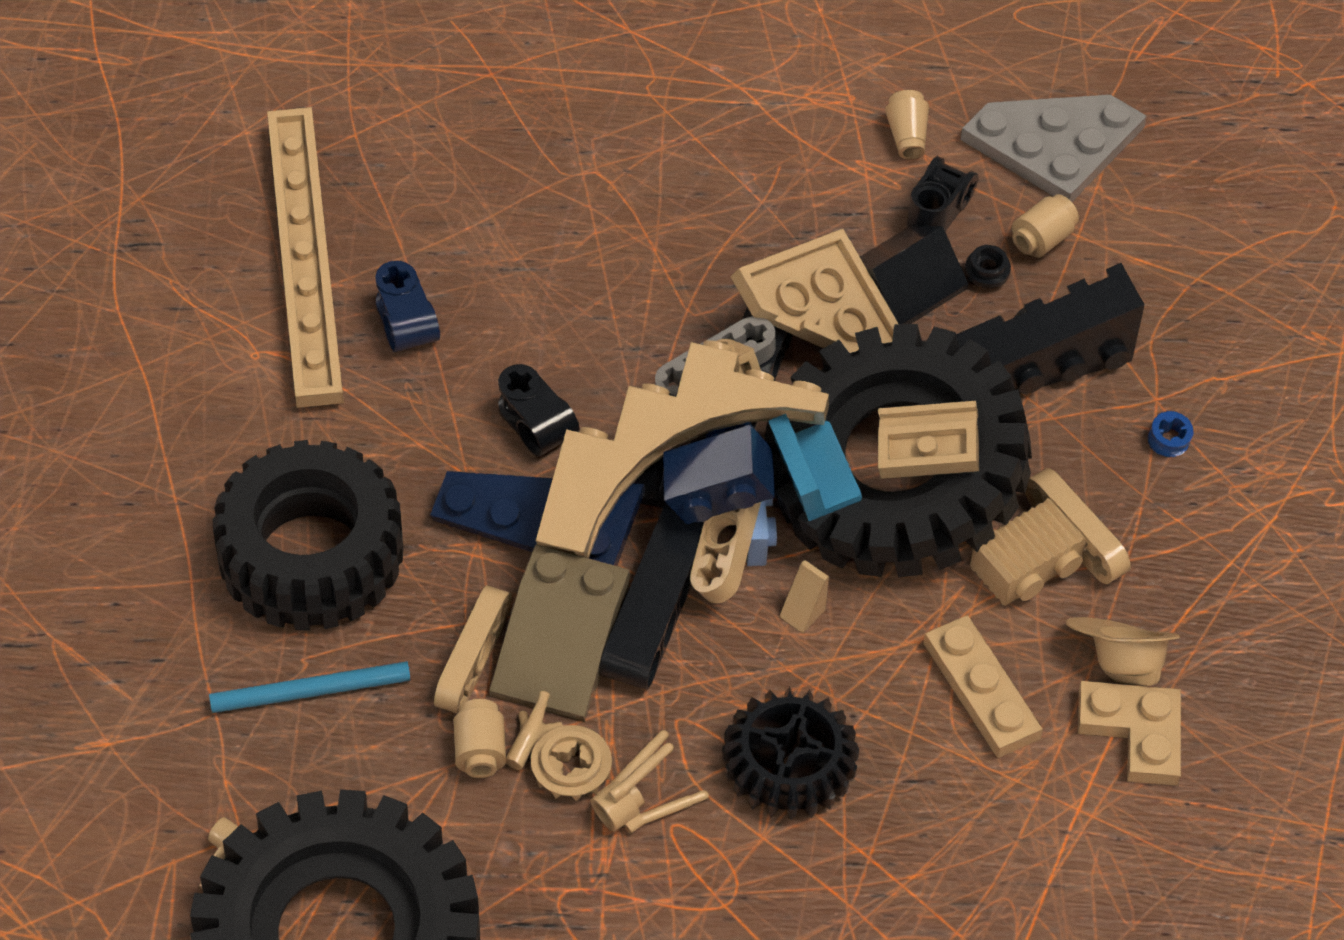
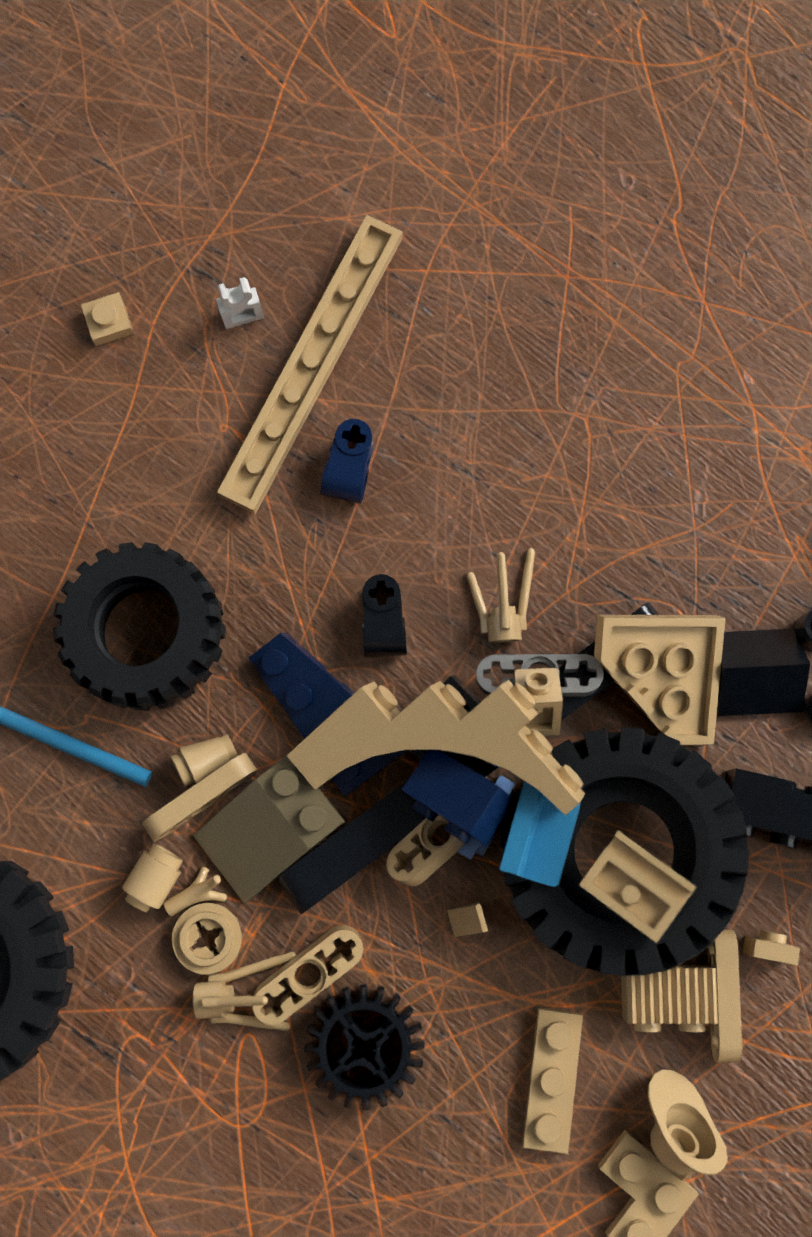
camera: 40 degrees right, 25 degrees up
(69, 325) = (107, 319): none -> tan plate
(201, 238) = (239, 304): none -> white plate
(446, 620) = (202, 758): none -> tan cone
(646, 352) = (504, 623): none -> tan plant
(708, 723) = (340, 962): none -> tan beam
(1088, 466) = (771, 947): none -> tan plate

